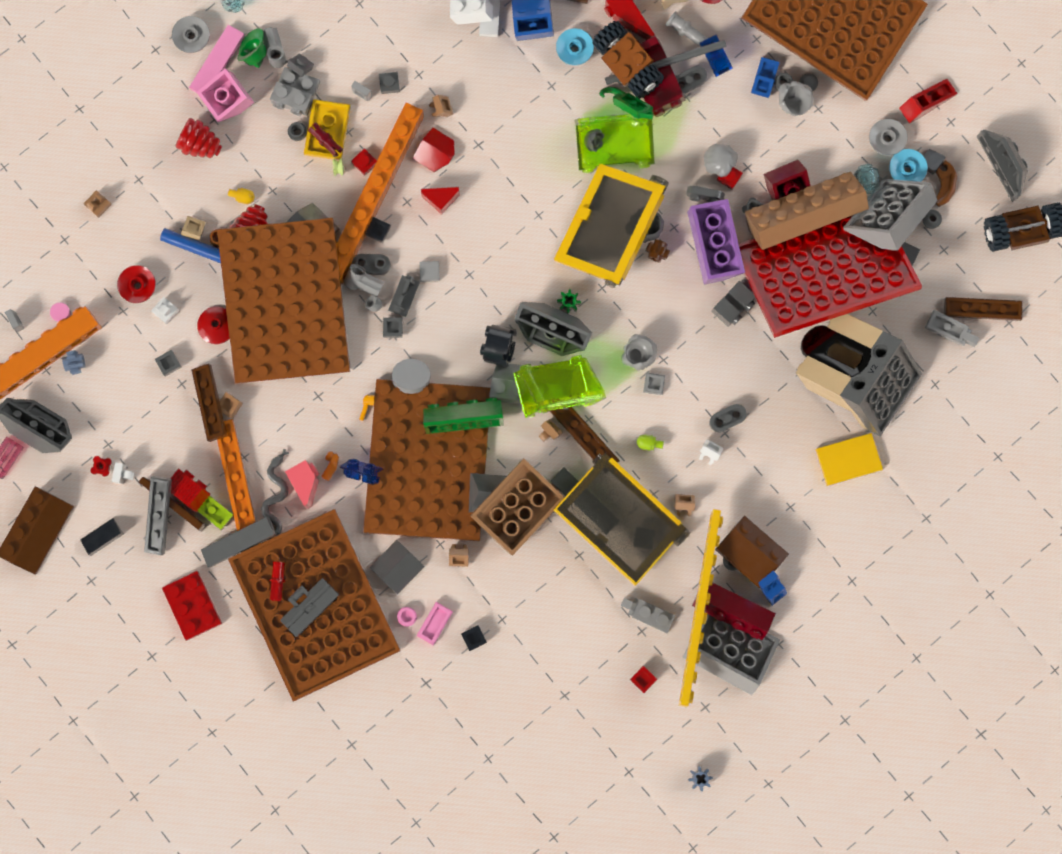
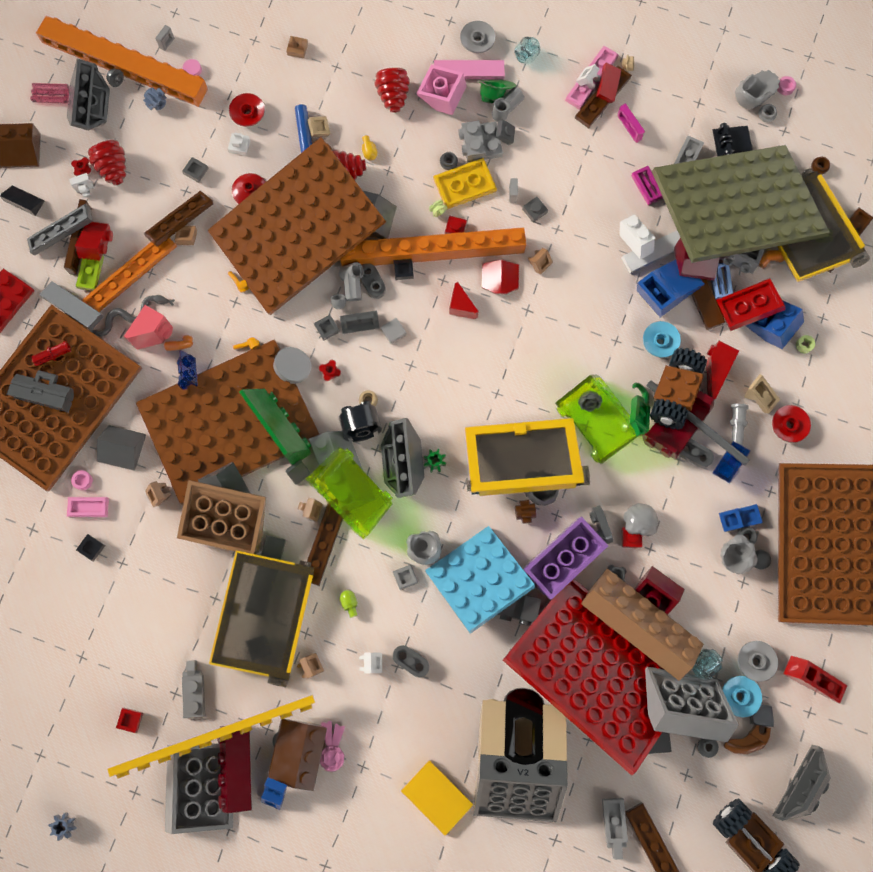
camera: 60 degrees right, 5 degrees down
(27, 388) = (115, 77): none -> dark grey plate
(115, 436) = (109, 161): none -> red piece
(308, 381) = (242, 285): none -> light orange hand
(325, 140) = (453, 184): dark red pin -> none
(433, 351) = (330, 375): none -> red plate
(479, 322) = (368, 394): none -> tan plate
(510, 424) = (297, 472): none -> dark grey slope
(693, 321) = (480, 579): none -> medium azure plate
(769, 524) = (332, 756): none -> bright pink piece

